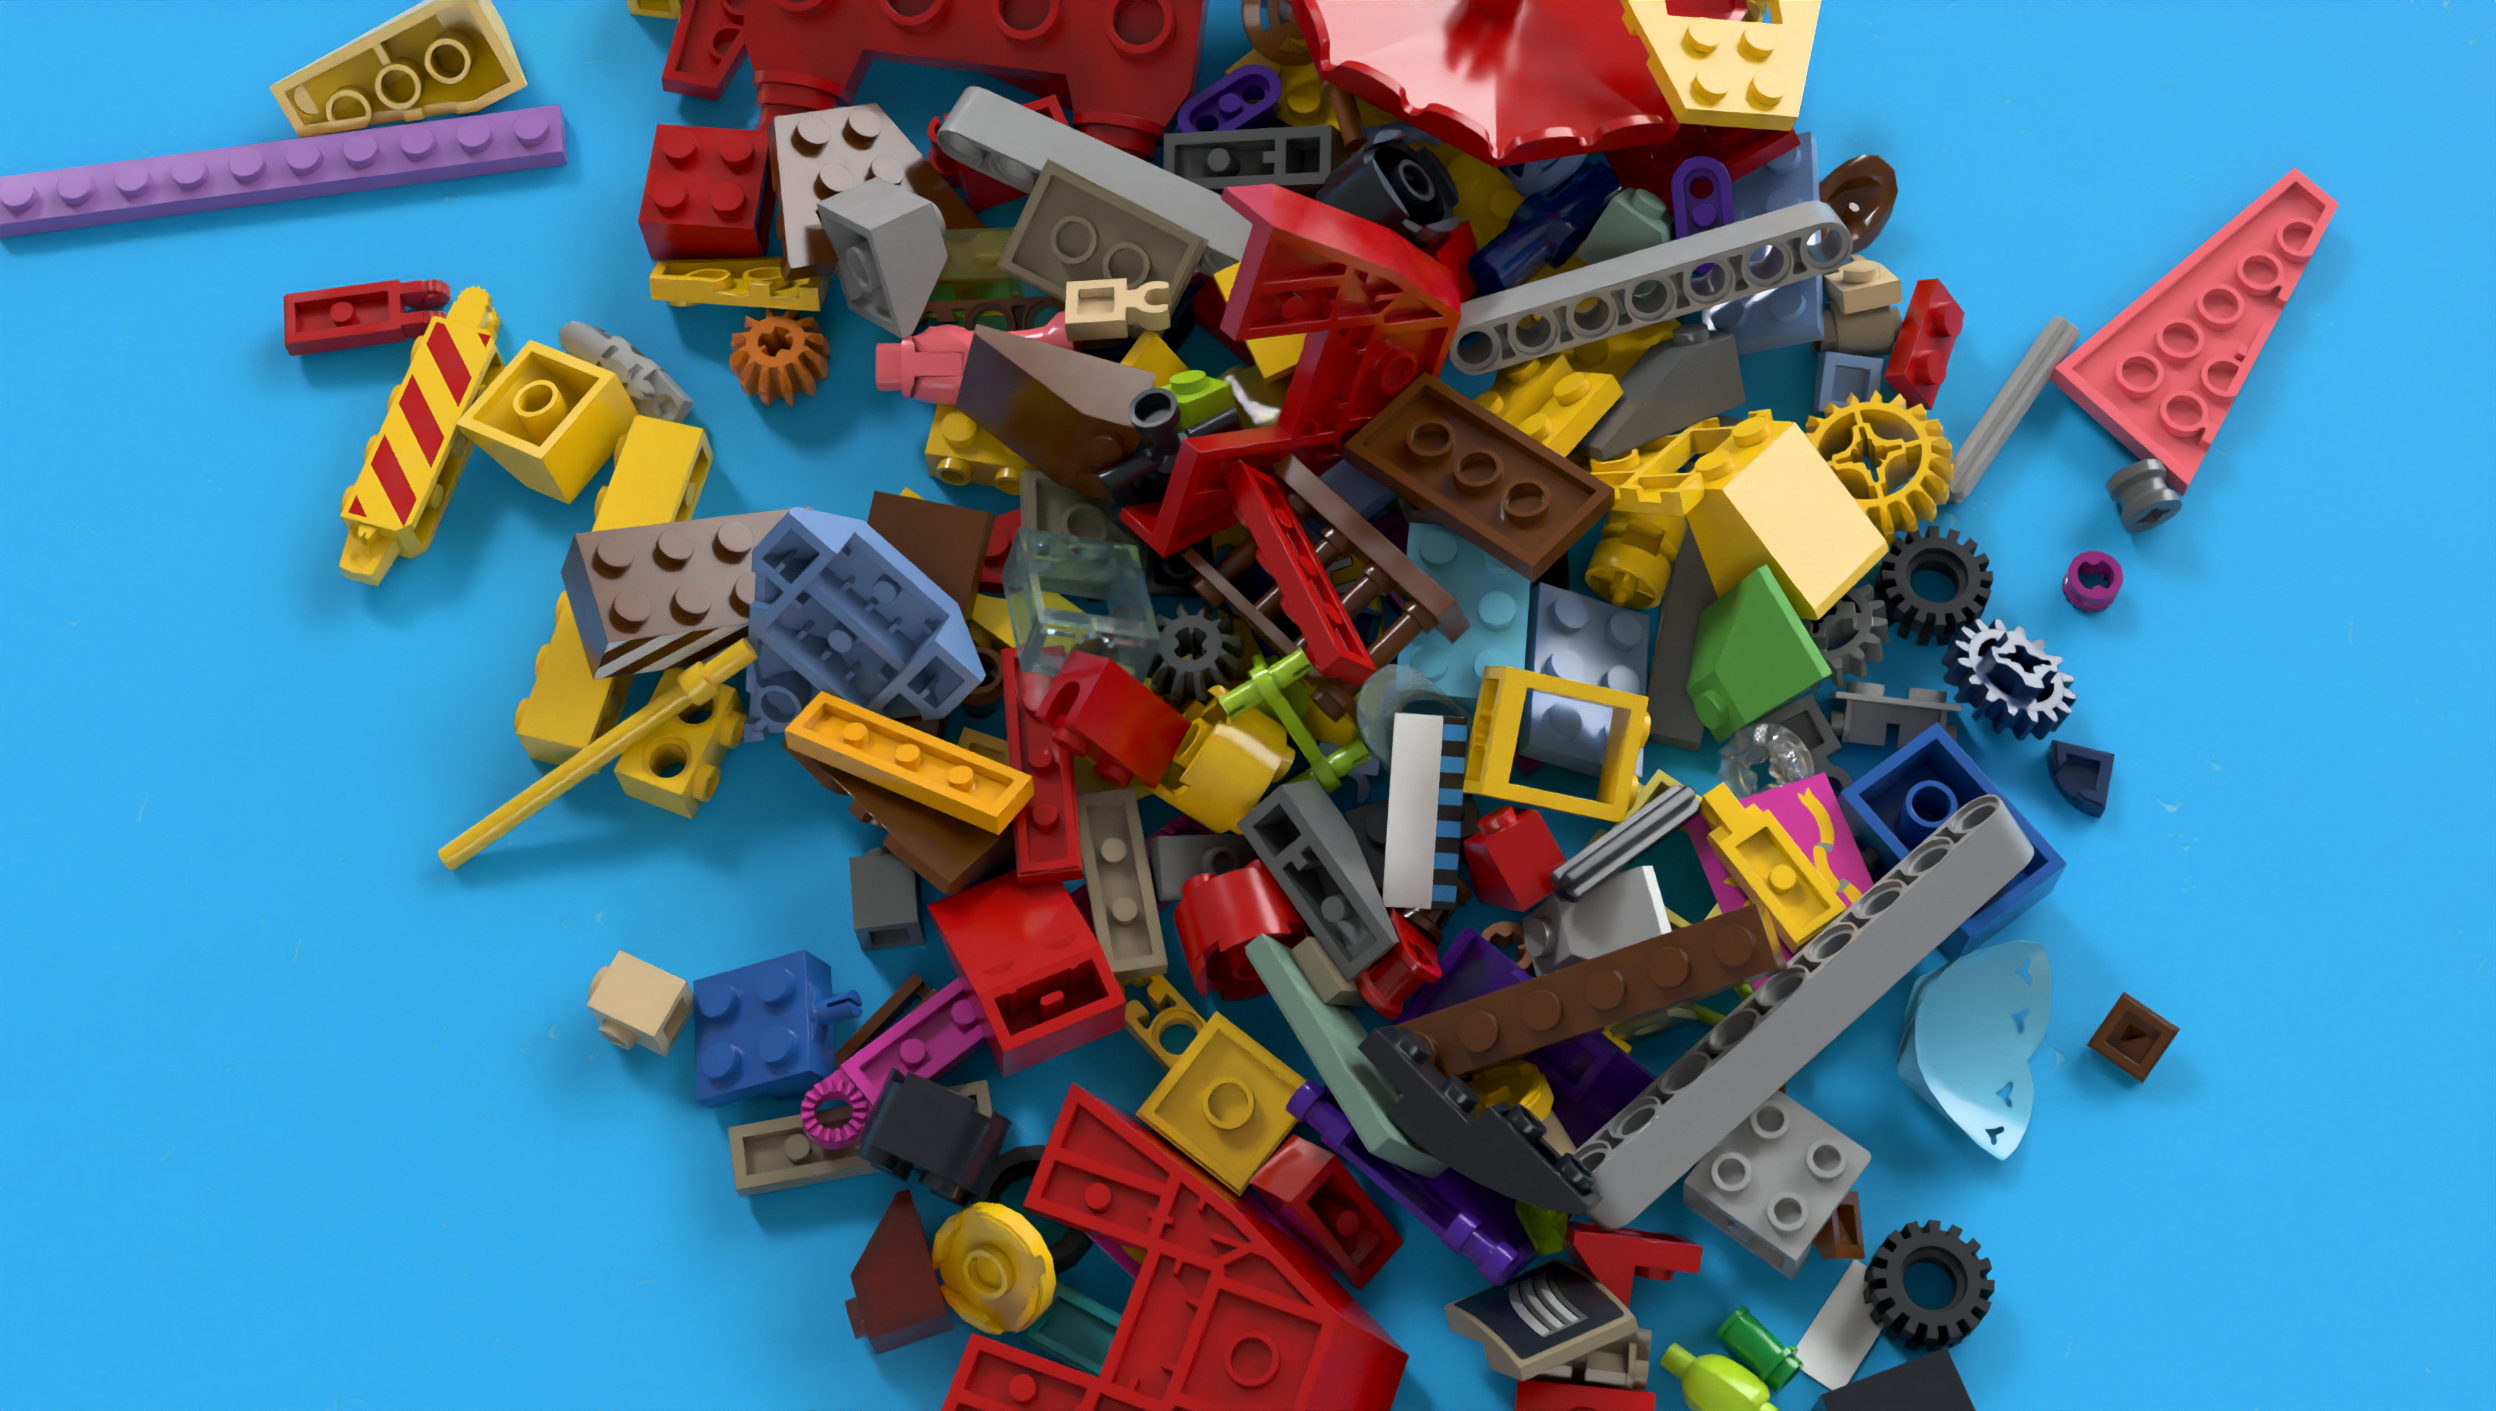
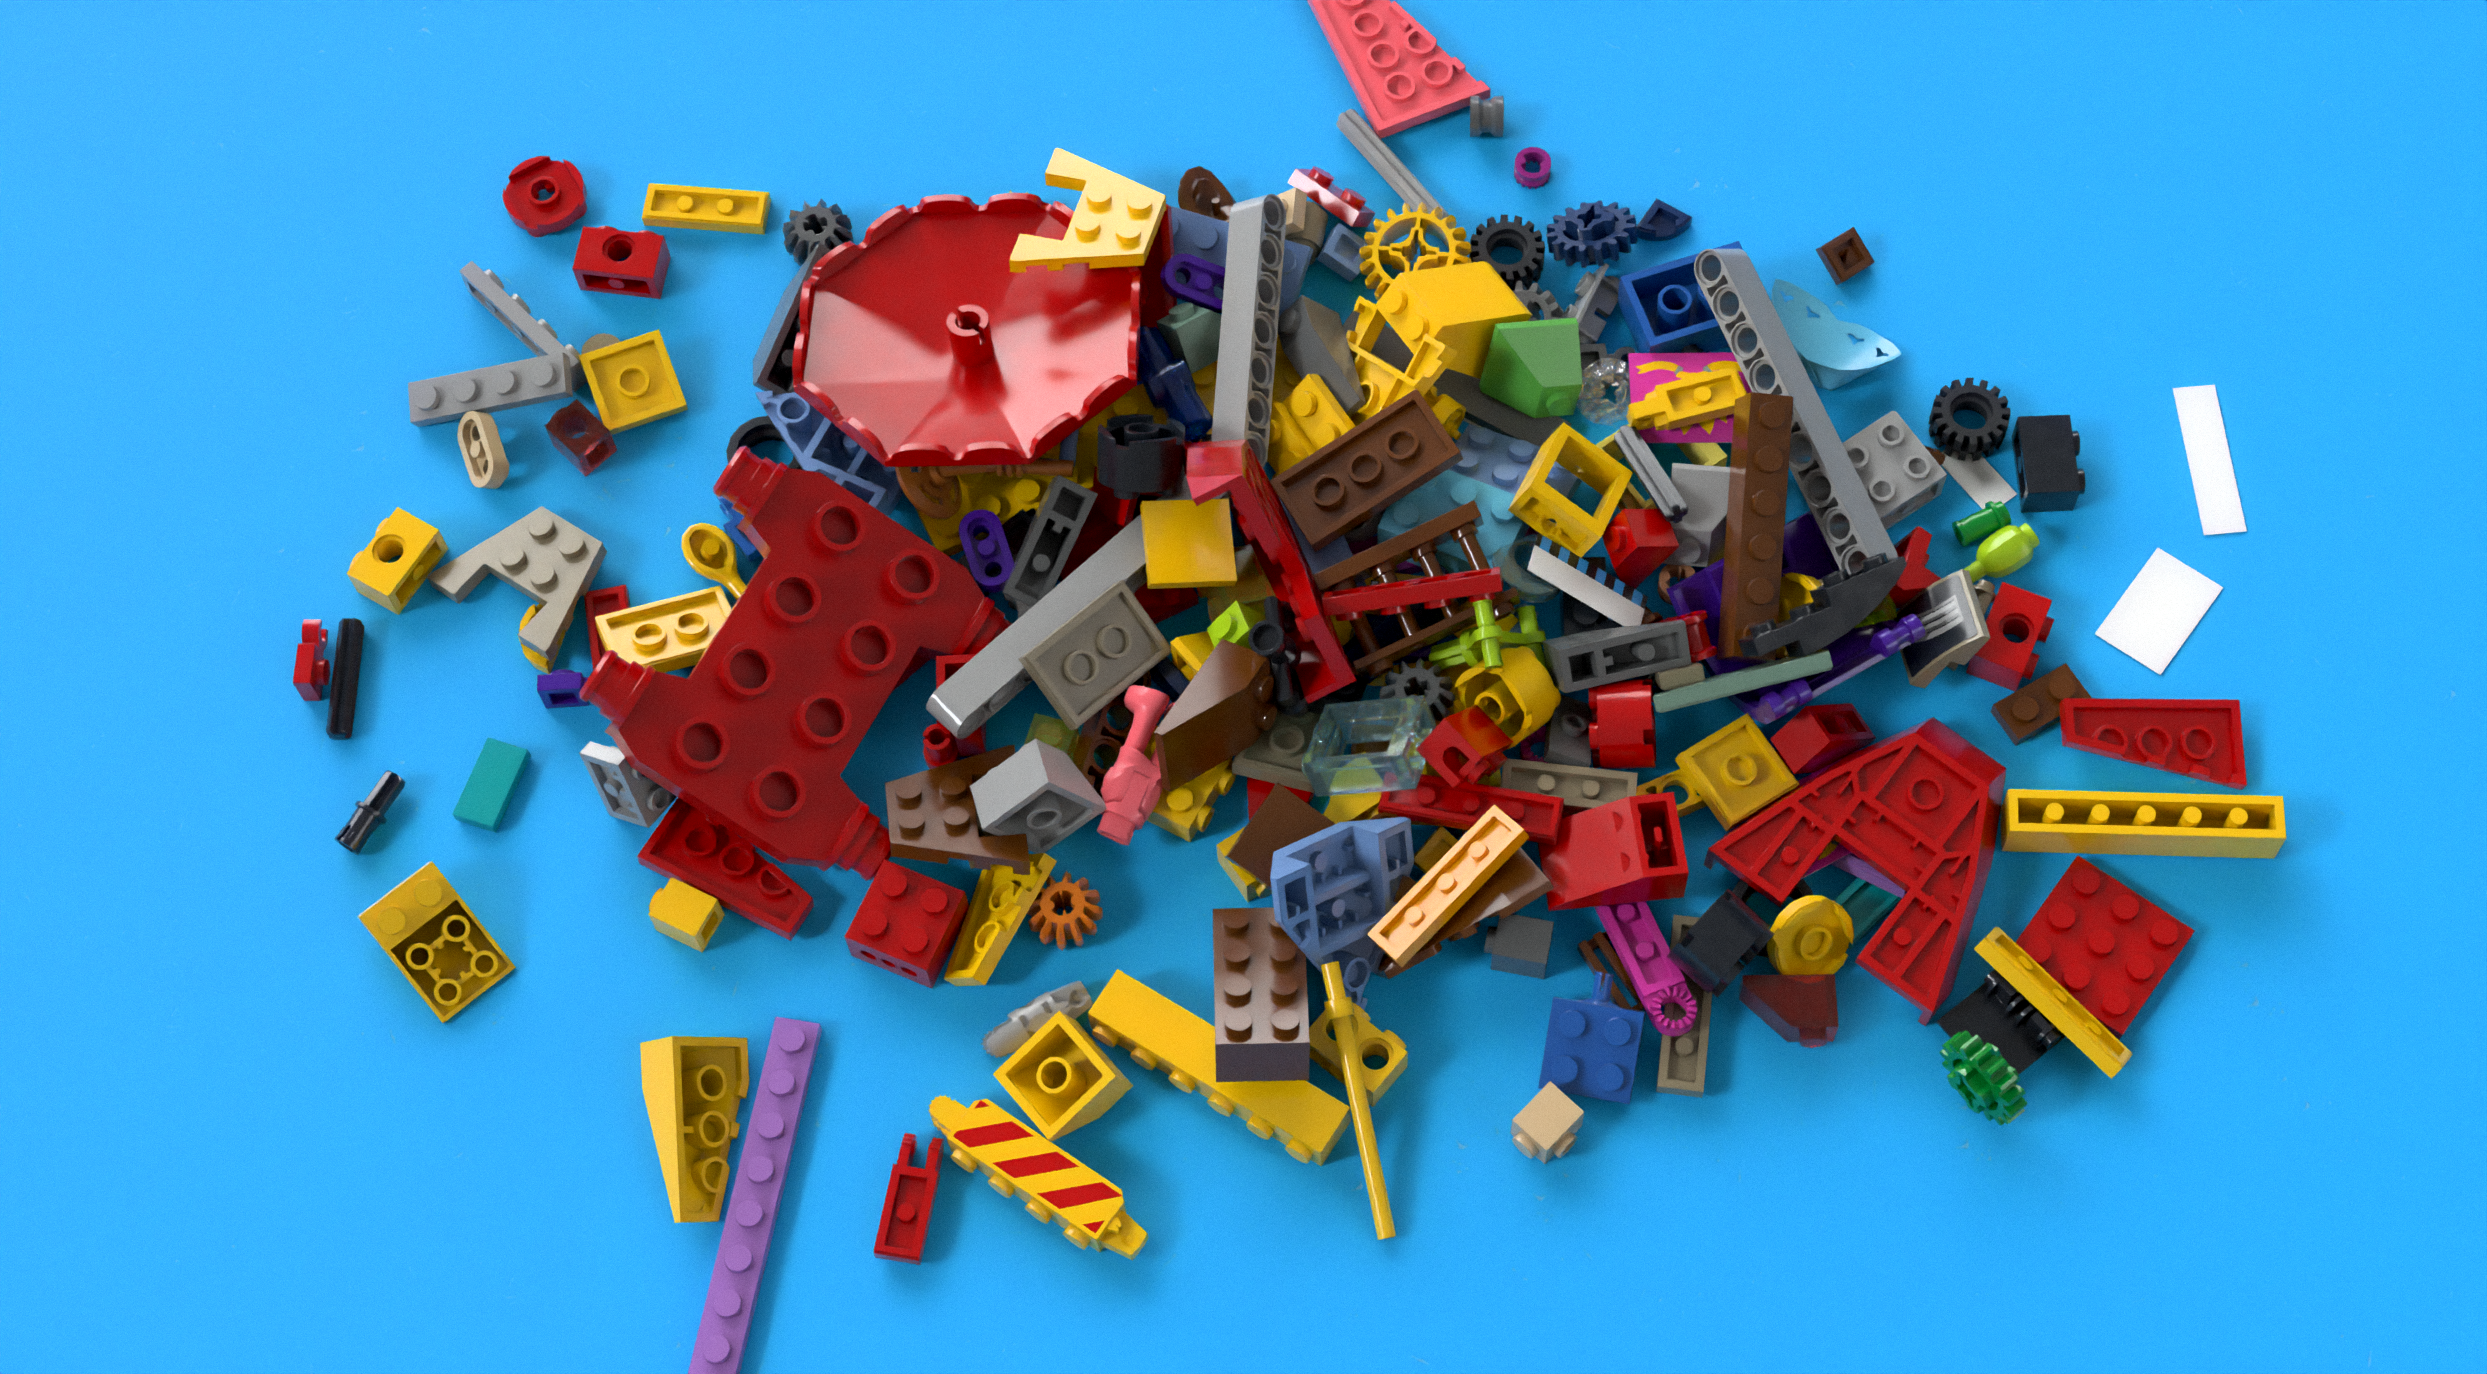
camera: 70 degrees left, 0 degrees up
(1107, 307) = (1149, 661): tan plate -> none

